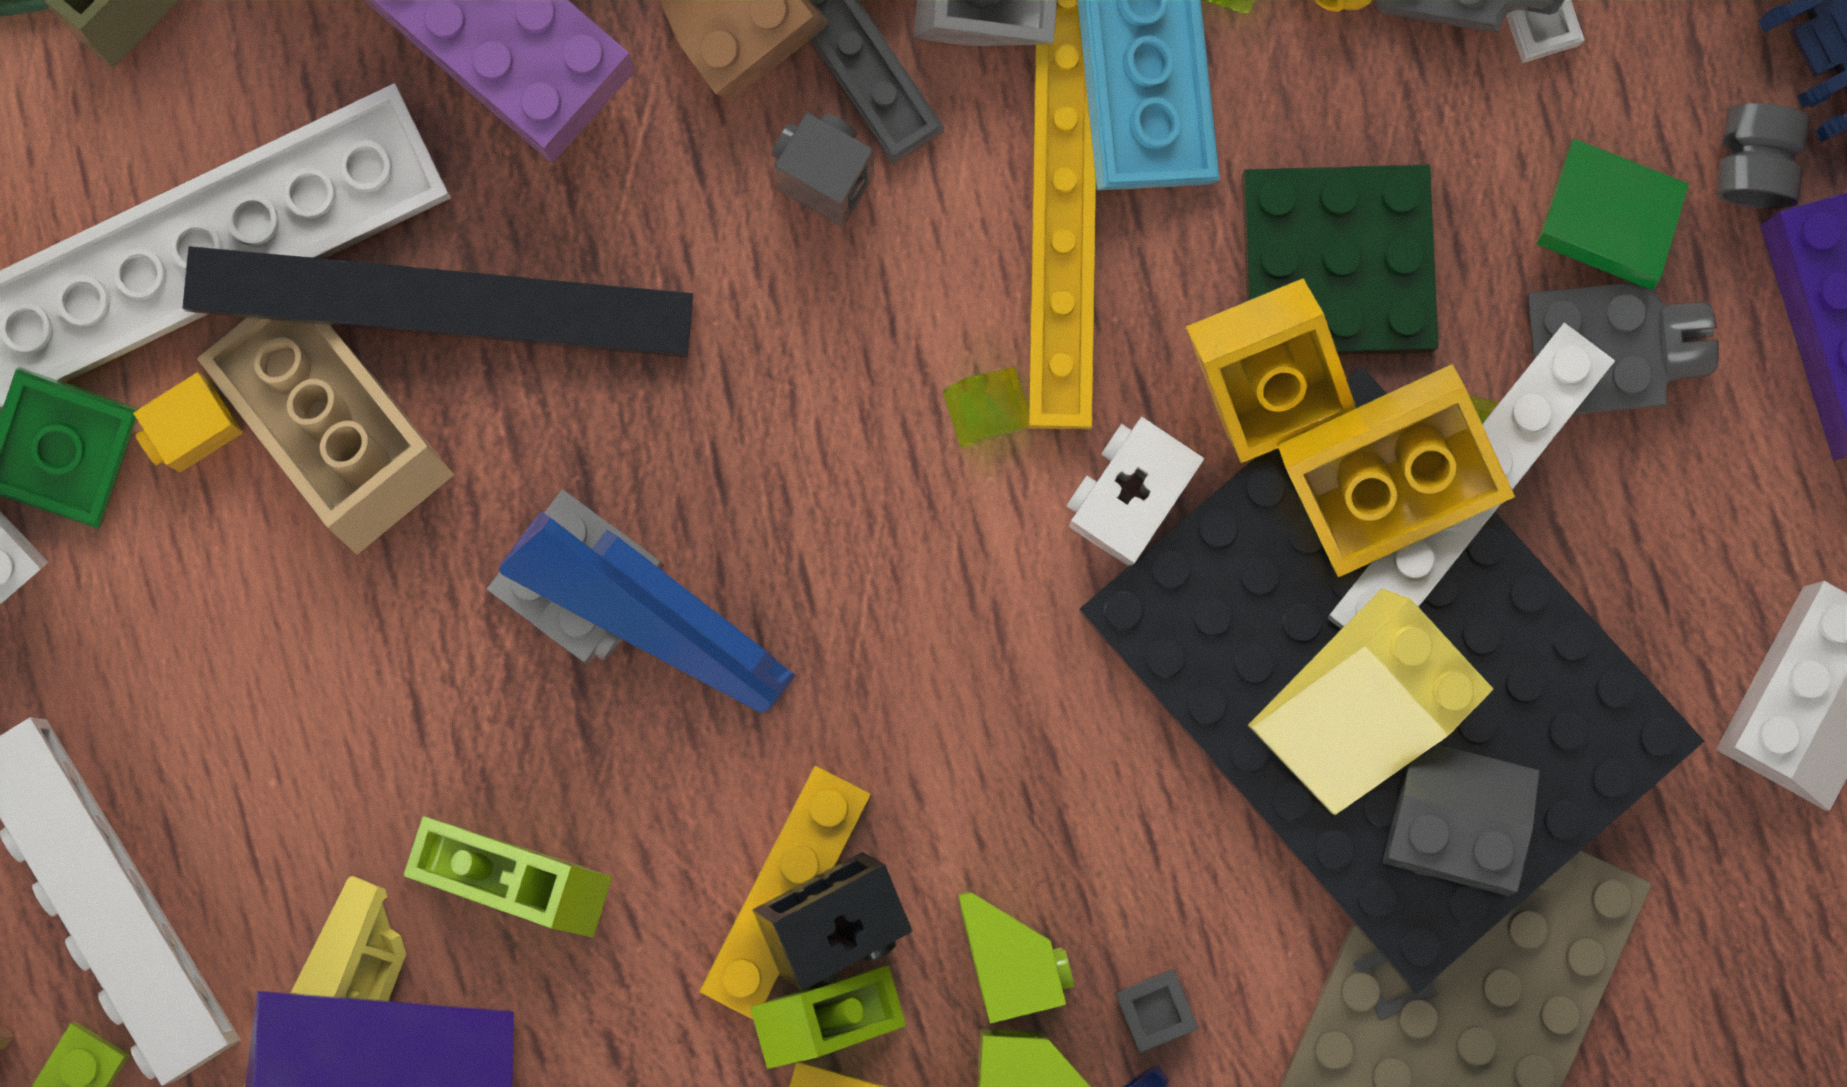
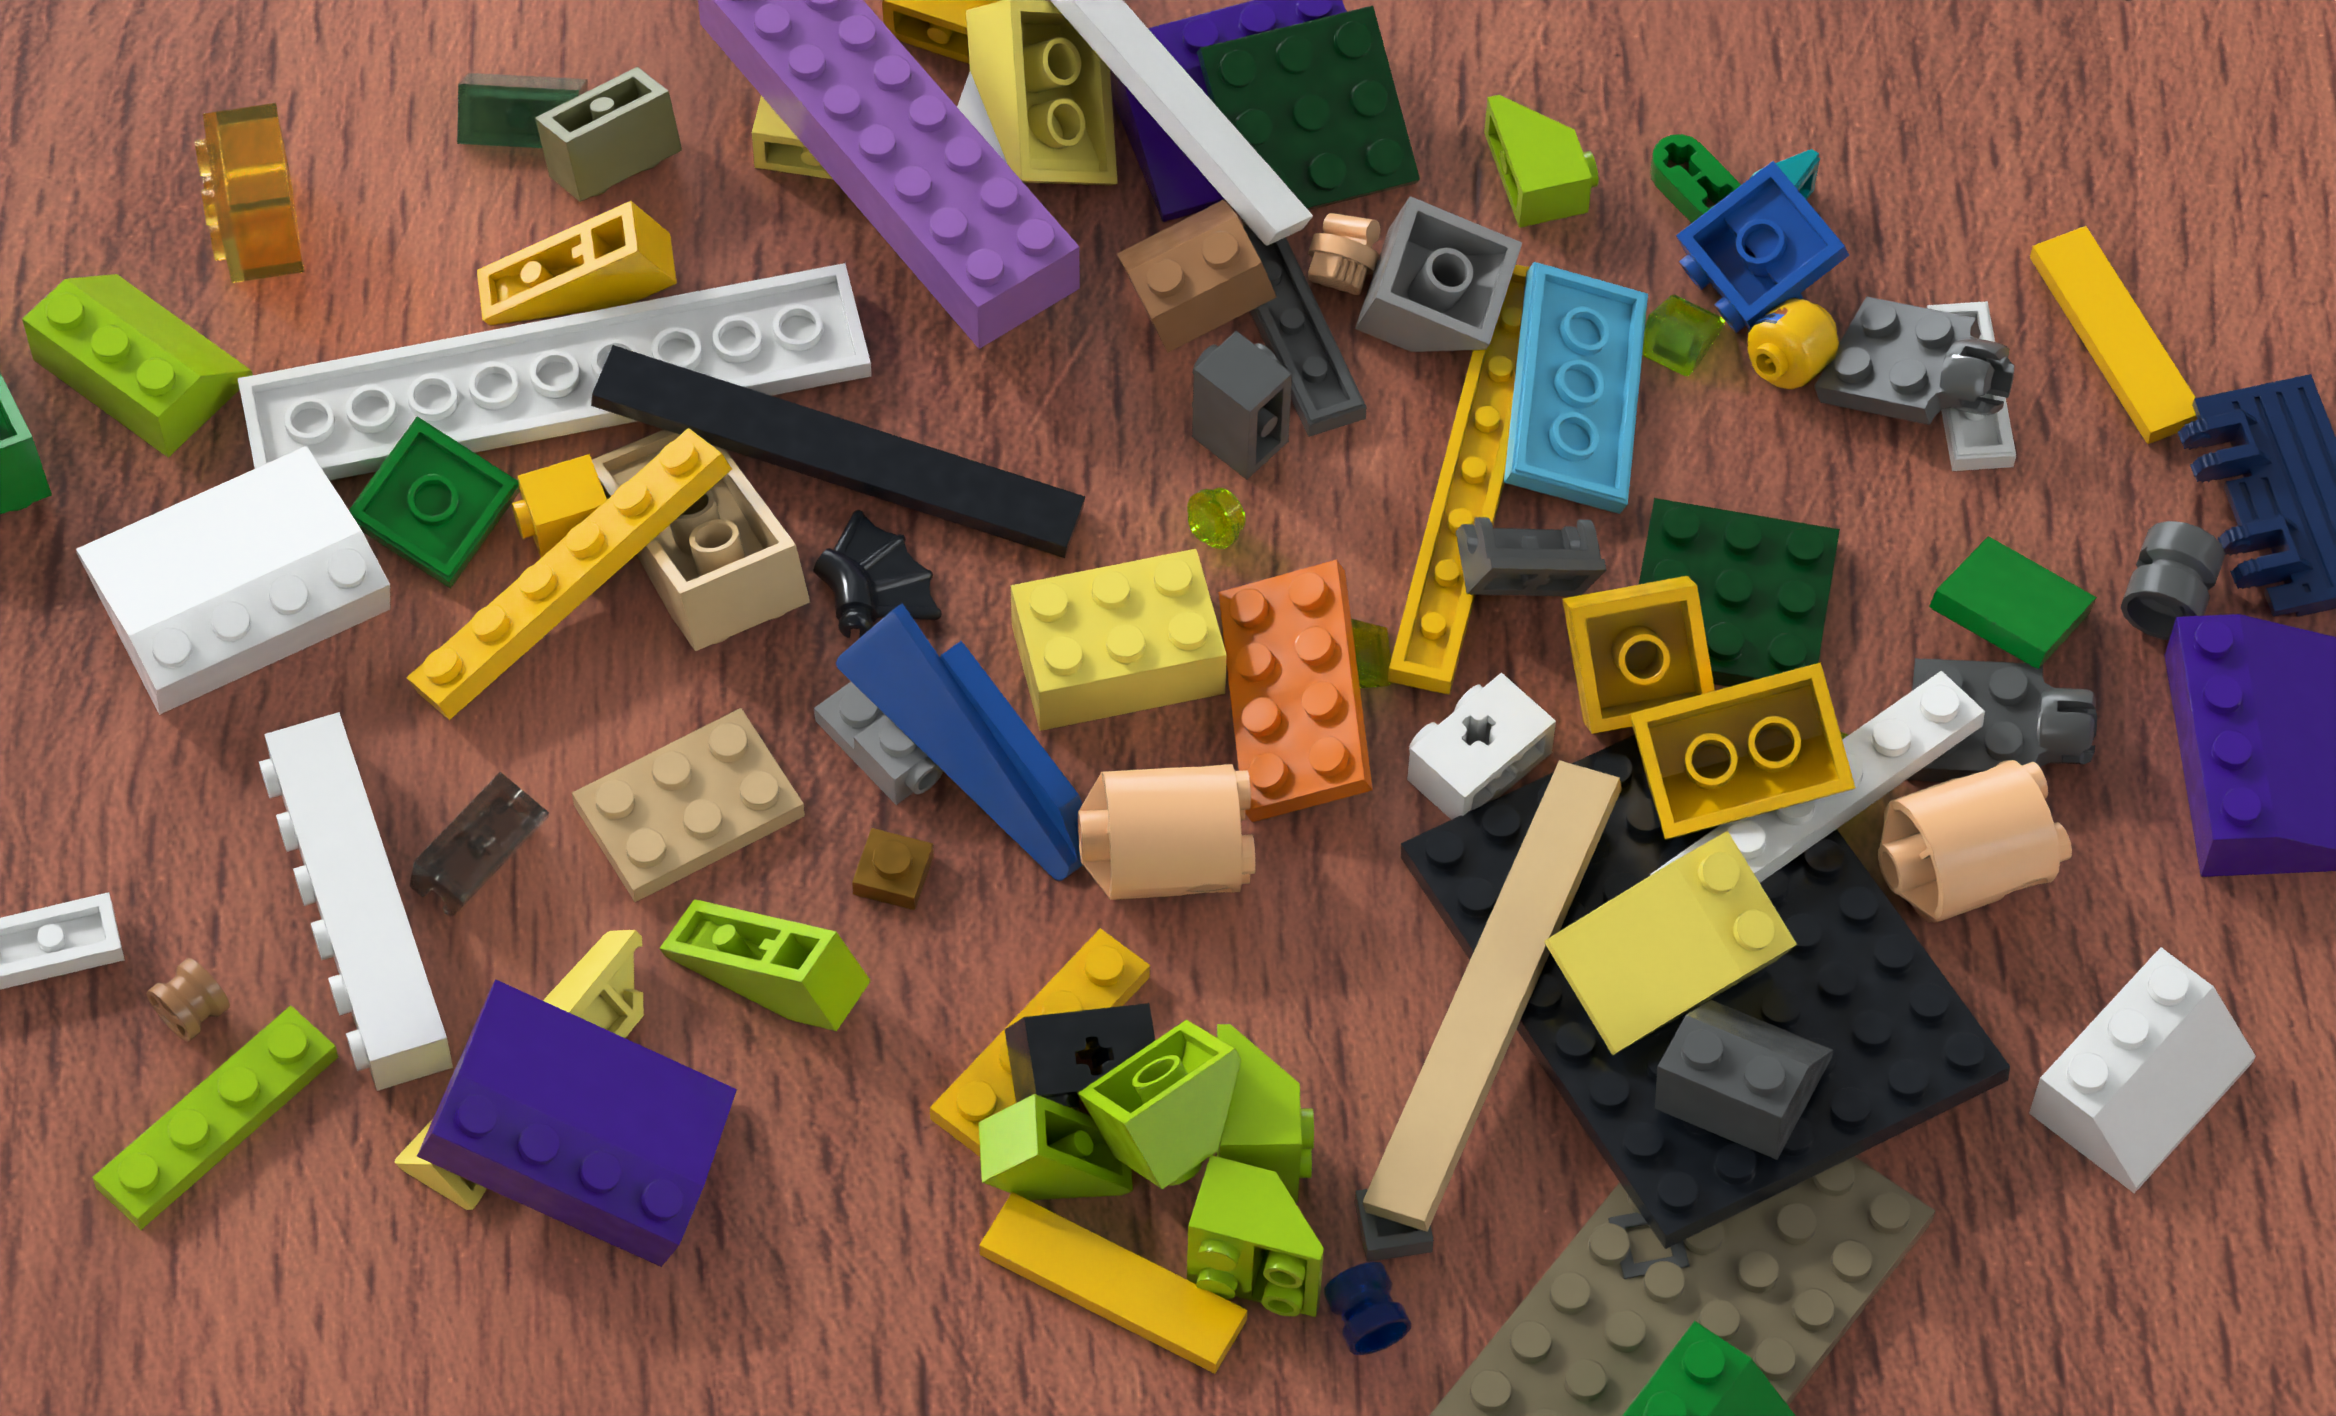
camera: 15 degrees right, 25 degrees down
(133, 148) = (581, 269): none -> yellow slope
(204, 820) = (477, 843): none -> clear smoke hinge
(213, 507) = (569, 573): none -> yellow plate
(391, 716) = (688, 804): none -> tan plate
(509, 426) = (874, 576): none -> black arm
(603, 740) = (893, 869): none -> pearl gold plate
(762, 451) = (1118, 639): none -> light yellow brick
(825, 289) = (1215, 517): none -> clear neon green plate
(859, 664) = (1167, 831): none -> light nougat cylinder
(926, 979) = (1166, 1104): none -> lime slope
(944, 468) = (1295, 690): none -> orange plate
(1139, 270) = (1529, 559): none -> dark grey hinge
(1206, 771) = (1492, 997): none -> tan tile
(1624, 499) = (1971, 840): none -> light nougat cylinder

